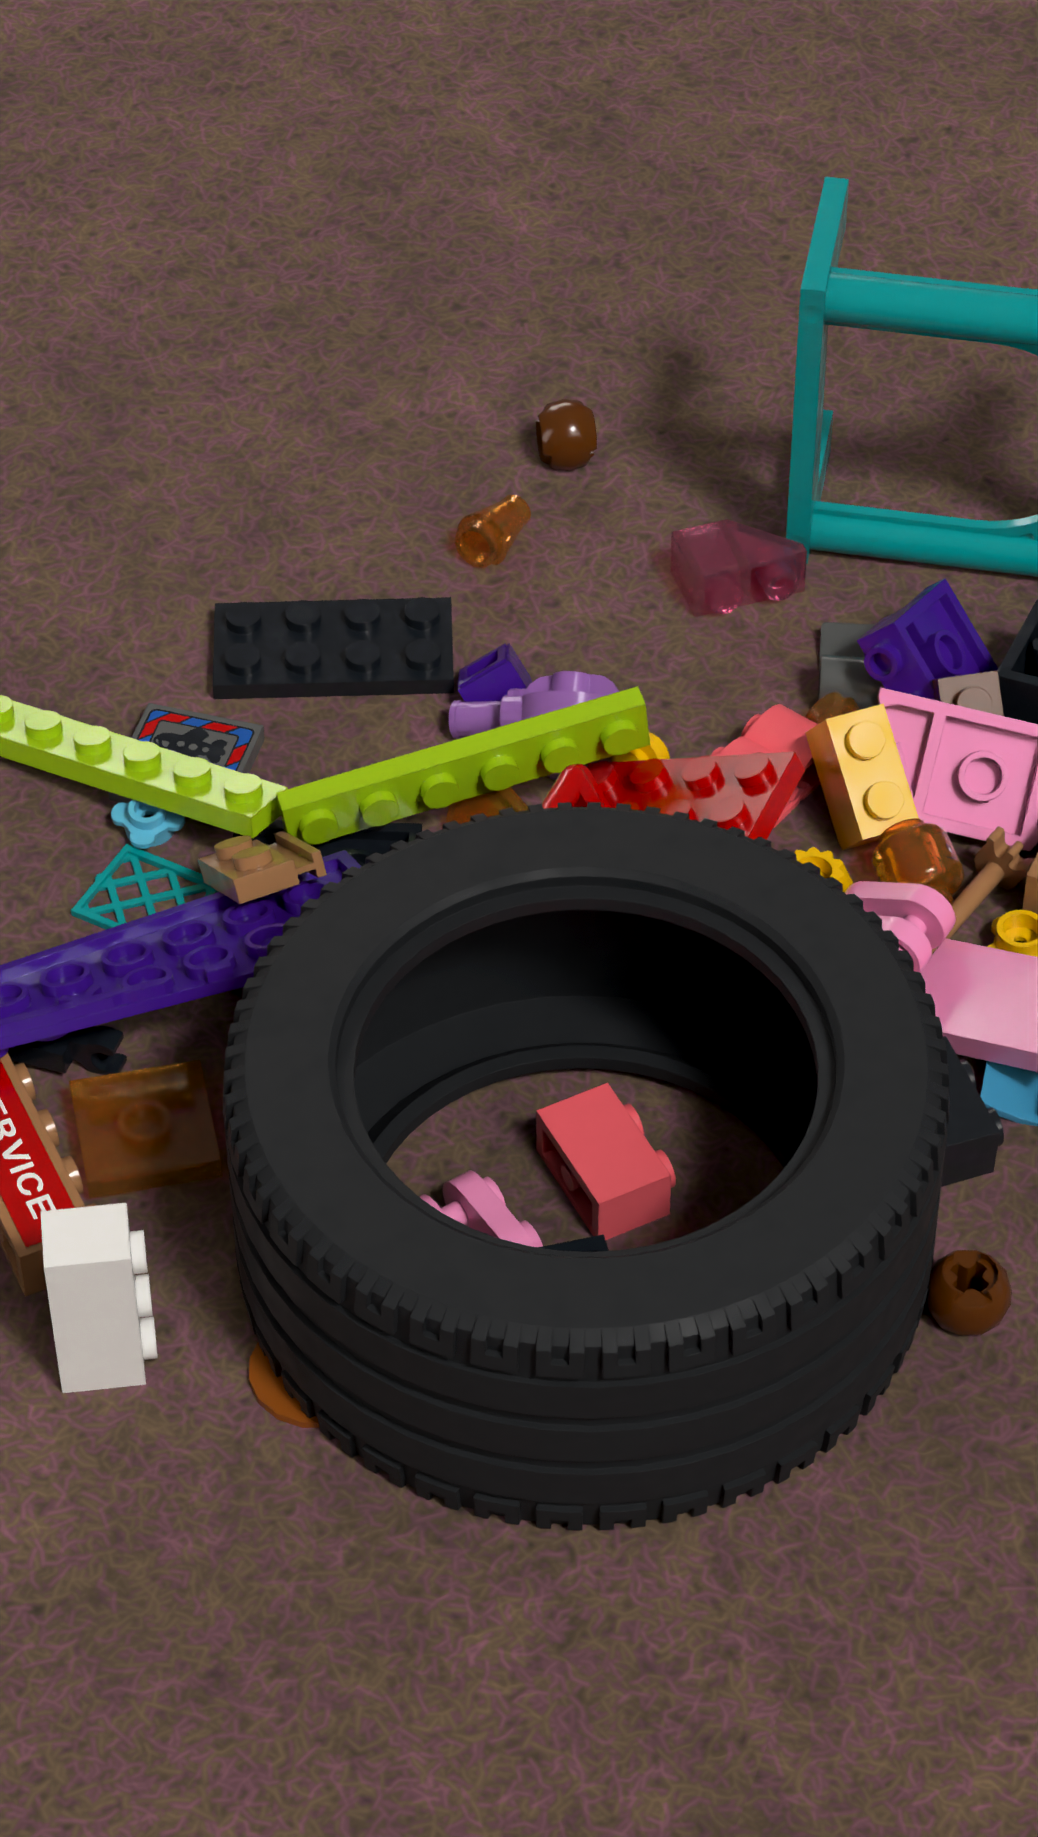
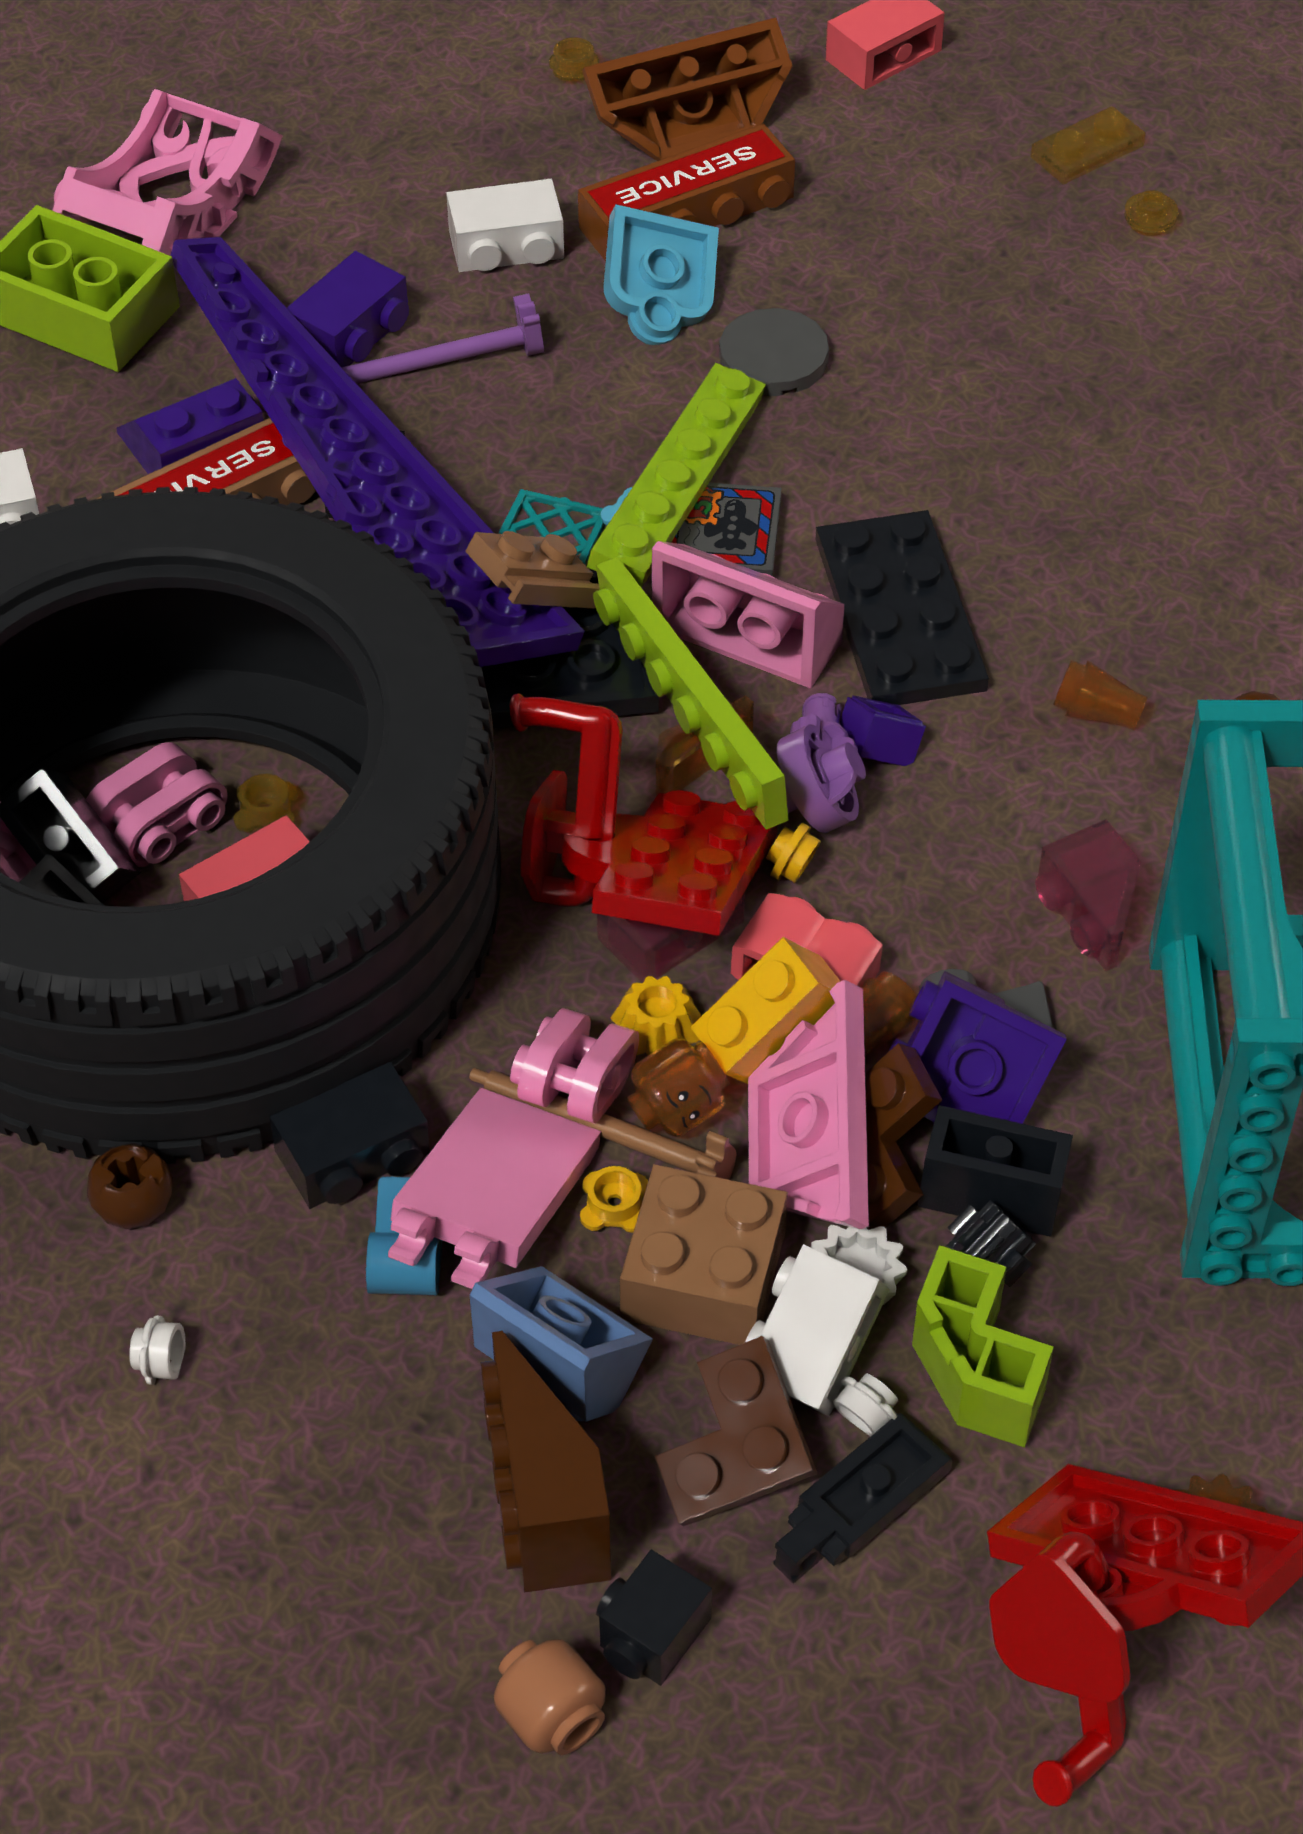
camera: 80 degrees right, 5 degrees up
(345, 726) = (745, 613): none -> bright pink slope
(479, 1141) = (264, 790): none -> clear yellow plate

